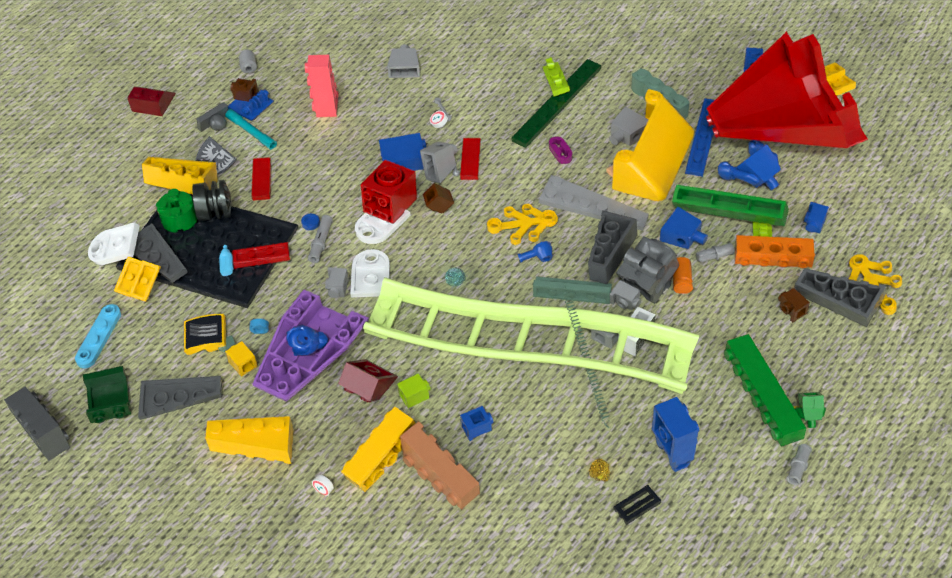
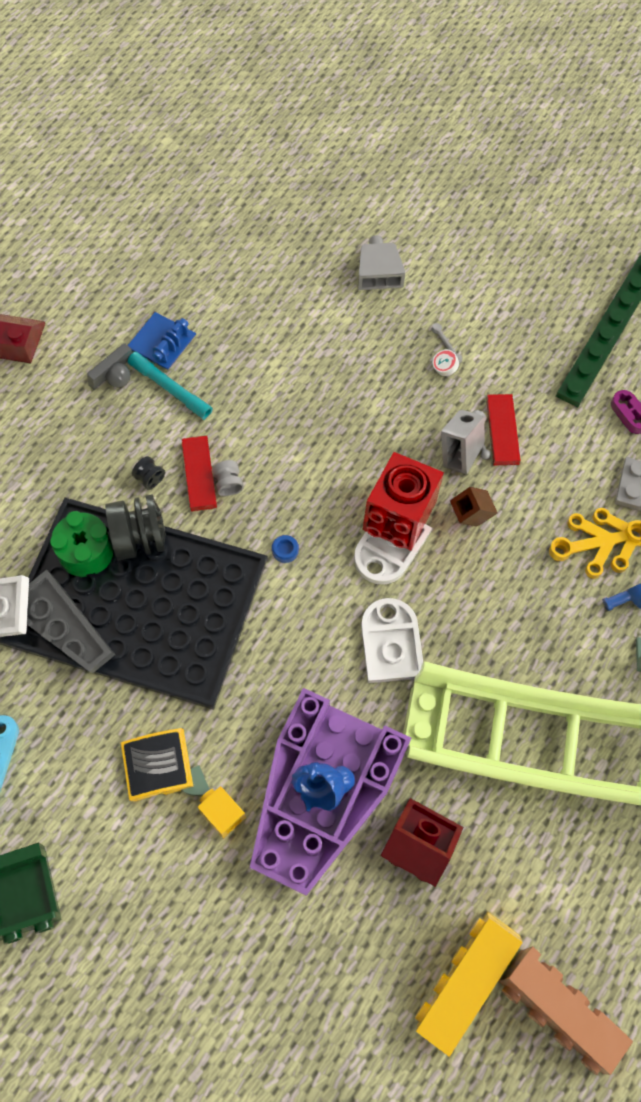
camera: 10 degrees left, 15 degrees up
(137, 279) = (37, 670): yellow slope -> none
(174, 394) = (122, 884): dark grey wing -> none
(178, 173) = (76, 475): yellow wedge -> none
(213, 152) = (121, 445): shield -> none
(226, 173) = (148, 472): none -> black wheel
(226, 262) = (171, 632): medium azure piece -> none
(244, 89) = (151, 318): reddish brown brick -> none
(247, 61) = (147, 266): light grey brick -> none
(252, 437) = (268, 965): yellow wedge -> none
(259, 326) = (239, 748): dark azure tile -> none
(261, 255) = (222, 617): red tile -> none
(279, 180) = (227, 475): none -> light grey wheel
(318, 244) = (305, 589): light grey pin -> none
(322, 85) = (274, 317): coral wedge -> none
(323, 485) = (387, 1048): white tile -> none
(337, 282) = (345, 663): light grey brick -> none
(403, 150) = (405, 425): blue brick -> none
(413, 390) = (496, 859): lime brick -> none
(455, 277) = (520, 645): clear light blue tile -> none
(476, 422) = (592, 925): blue brick -> none
(555, 77) = (603, 289): lime plate -> none

